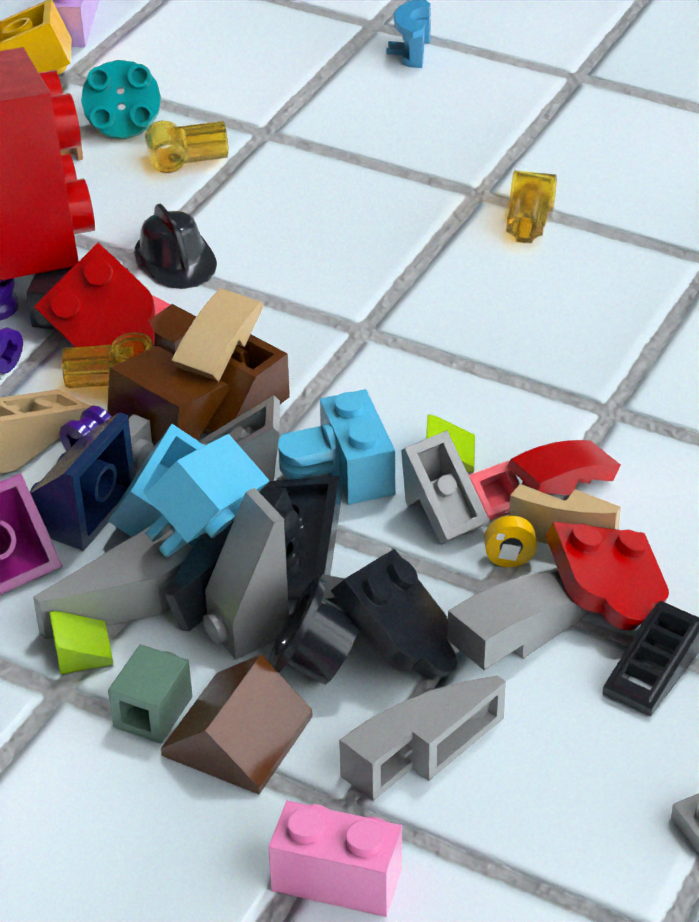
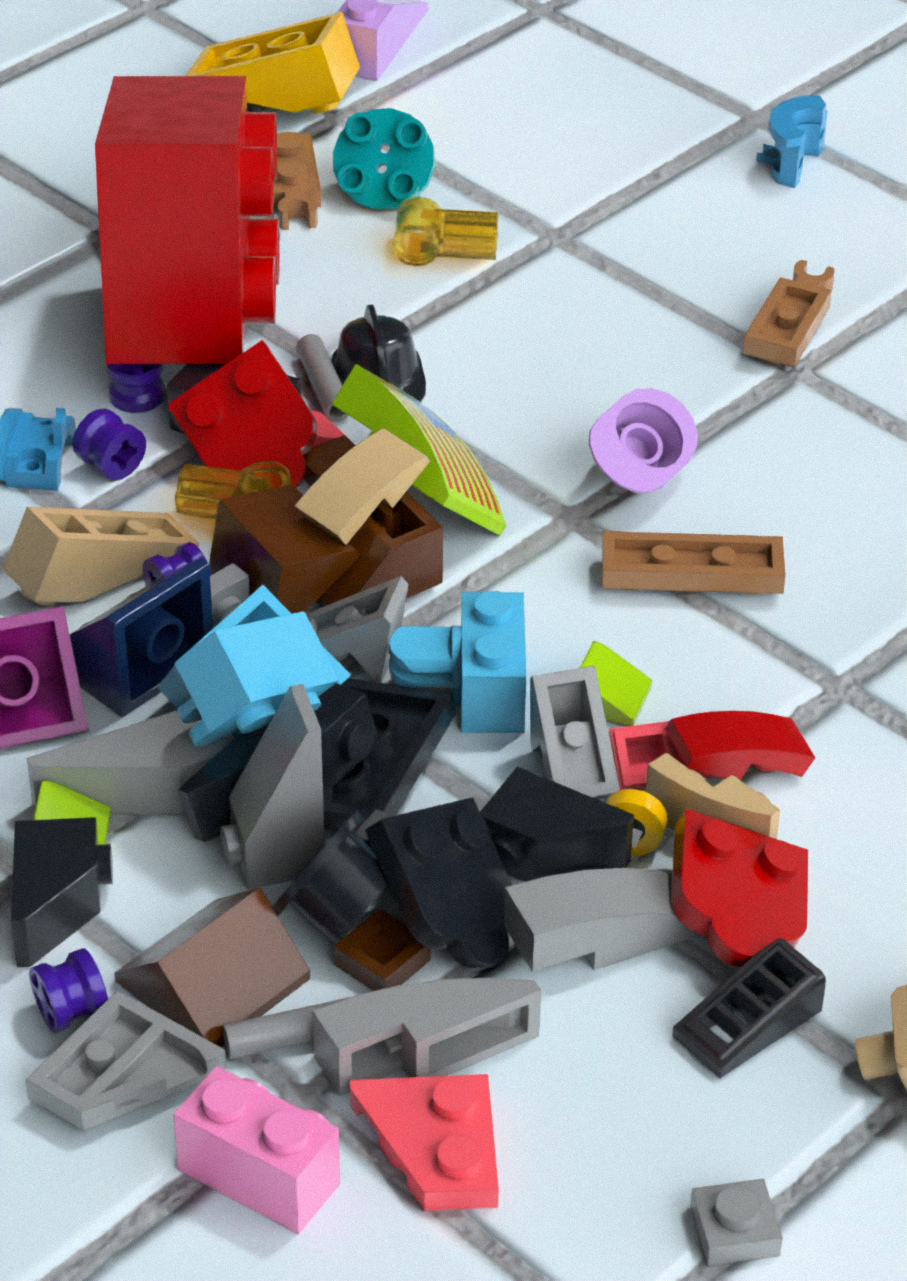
camera: 15 degrees right, 0 degrees up
(80, 681) = (55, 882): none -> black slope
(134, 770) = (67, 989): none -> dark purple wheel
(137, 265) = (321, 374): none -> light grey piece
(150, 693) = (124, 904): sand green brick -> none
(198, 818) = (121, 1063): none -> light grey wing
(207, 276) = (453, 471): none -> lime slope
(307, 761) = (270, 1031): none -> light grey piece
(362, 684) = (380, 952): none -> reddish brown tile
(402, 262) = (643, 440): none -> lavender piece
(459, 559) = (554, 829): none -> black slope
(462, 156) = (790, 316): none -> medium nougat plate
(464, 812) = (436, 1135): none -> coral wing
(469, 343) = (693, 562): none -> medium nougat plate
(530, 200) = (851, 392): clear yellow piece -> none

